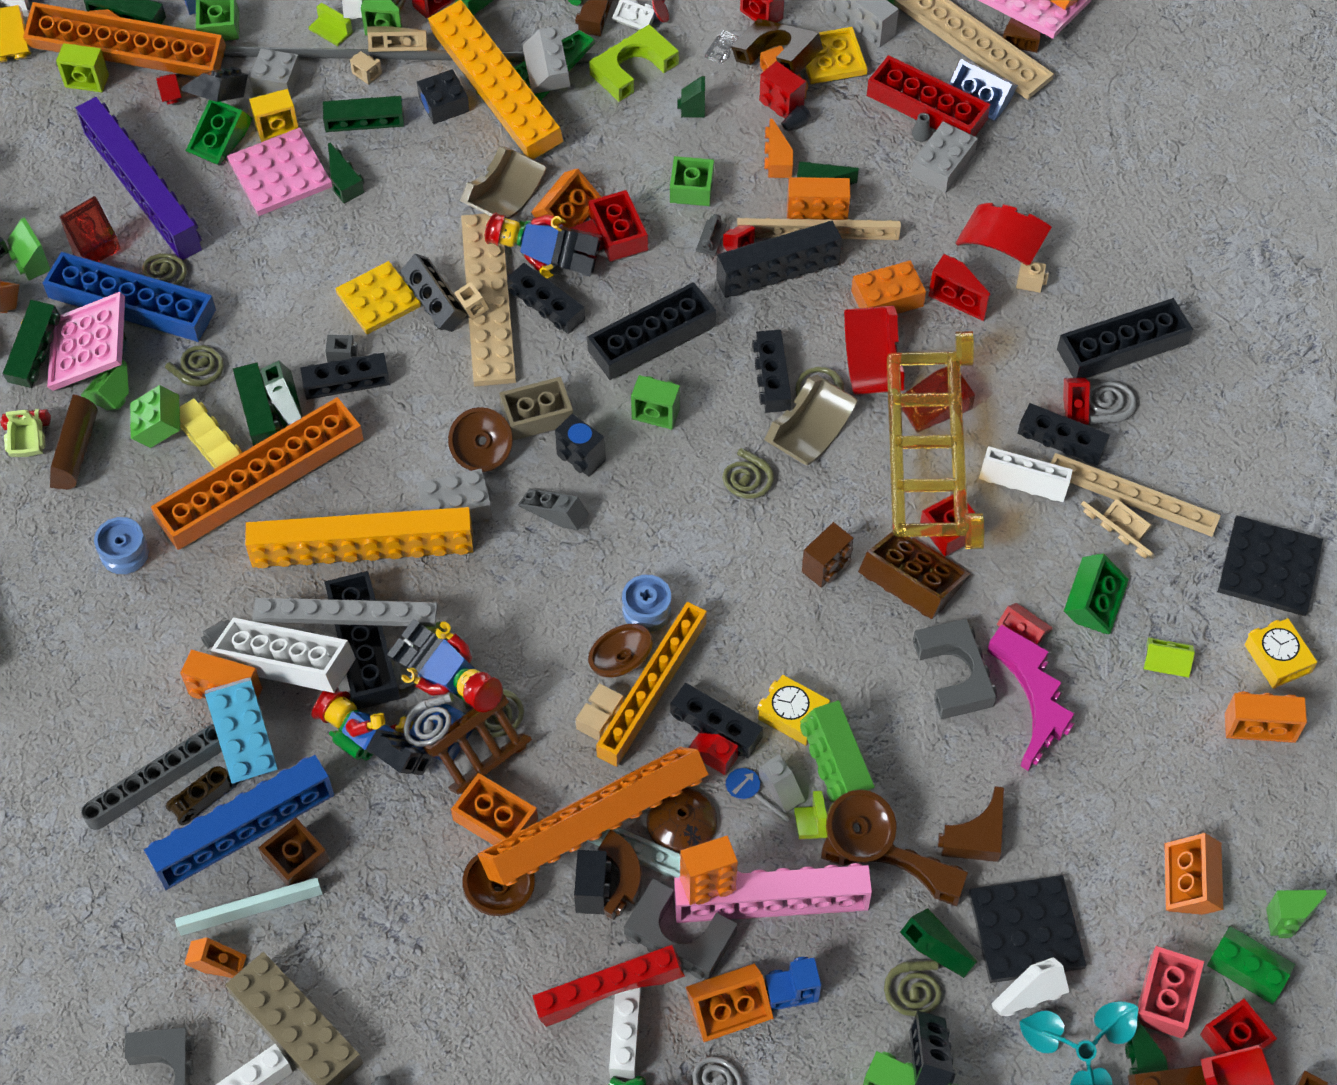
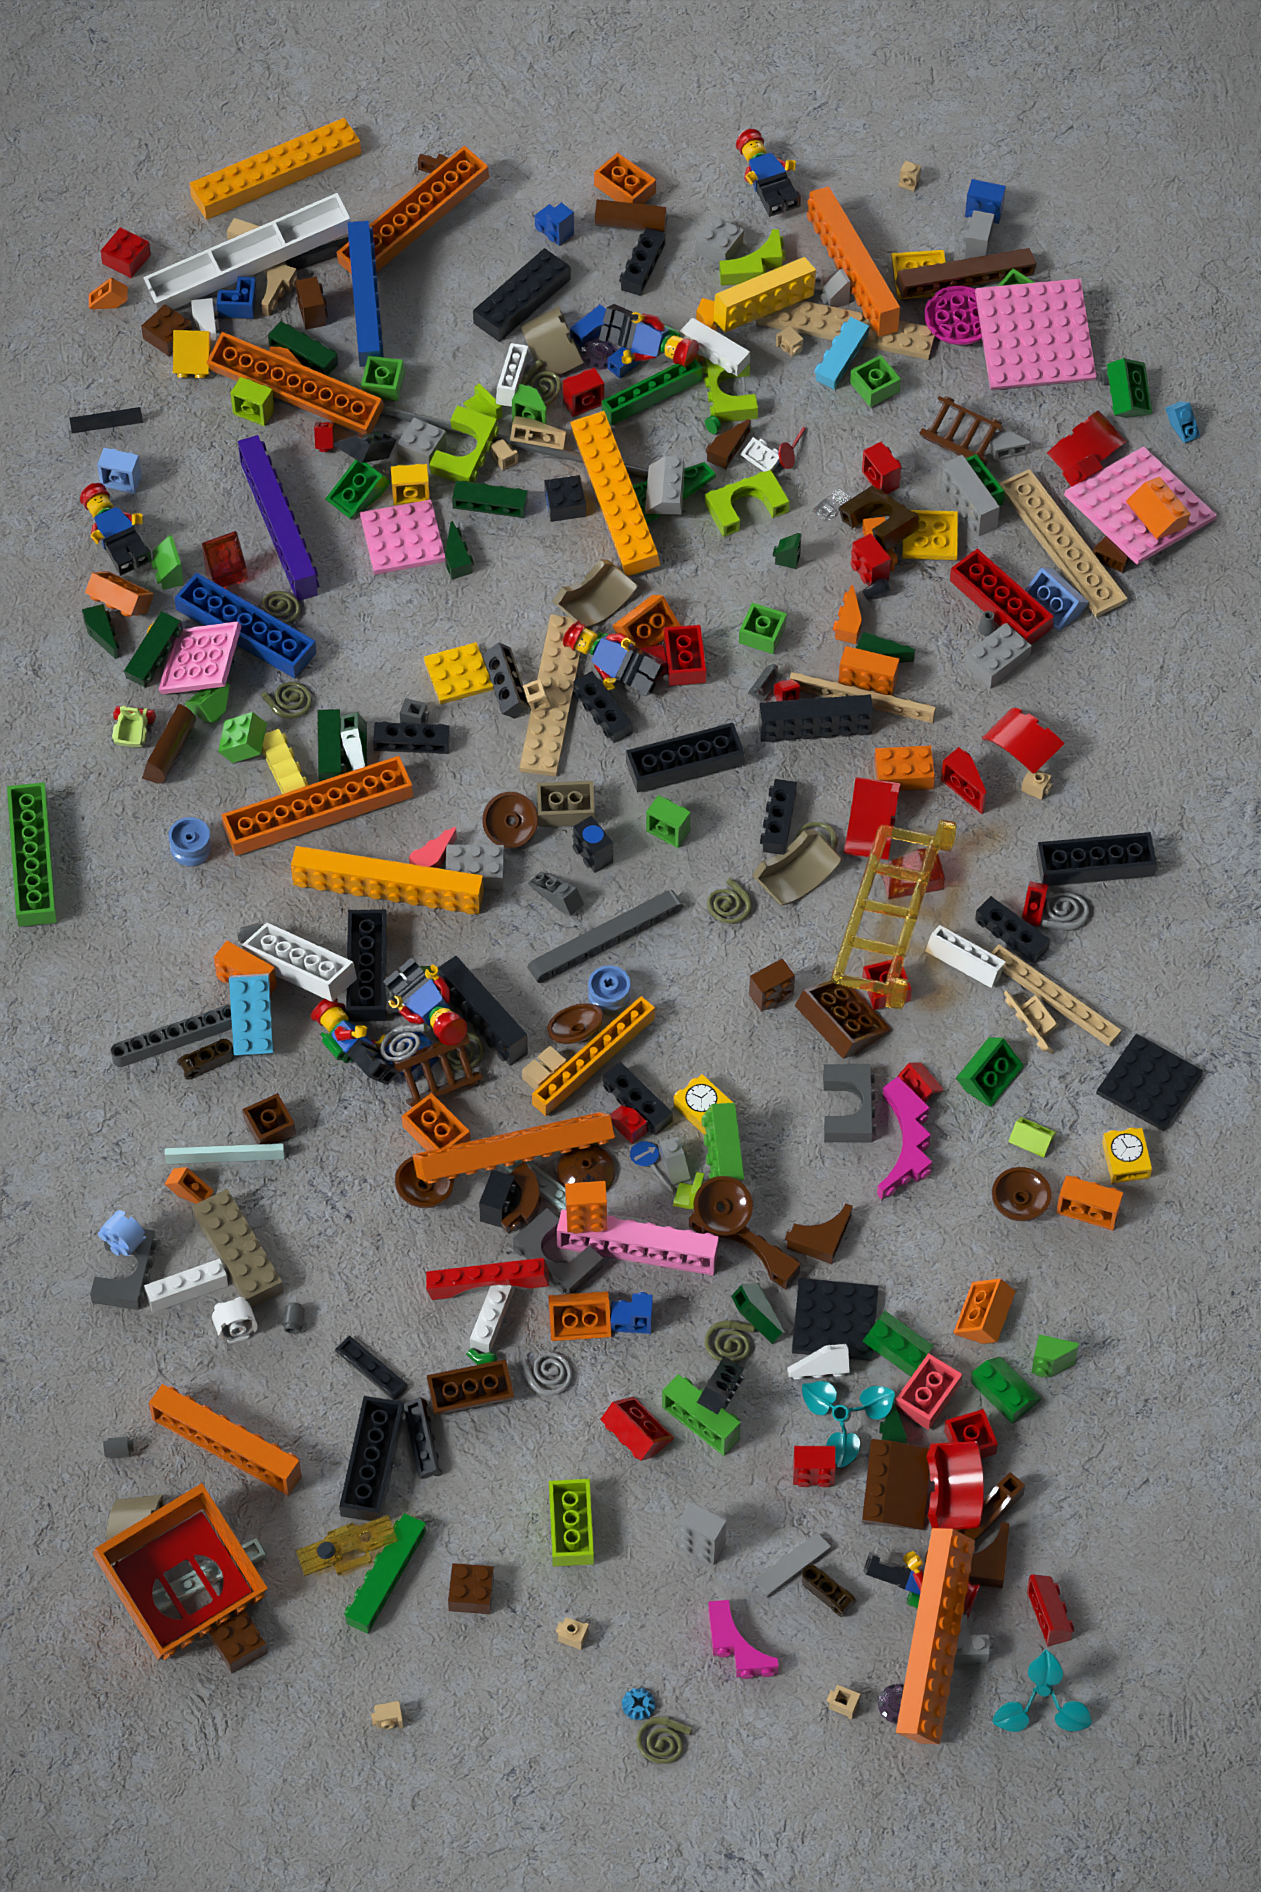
camera: 15 degrees right, 0 degrees up
(146, 1045) = (122, 1233): none -> light blue brick
(239, 821) = (233, 1086): blue brick -> none
(328, 43) = (466, 467): none -> lime arch
(344, 612) = (357, 938): light grey plate -> none
(404, 492) = (434, 851): none -> coral slope
(513, 662) = (484, 1012): none -> black brick
(622, 544) = (605, 936): none -> dark grey beam
(1112, 941) = (897, 1343): none -> green slope
(1188, 715) = (1021, 1184): none -> reddish brown dish

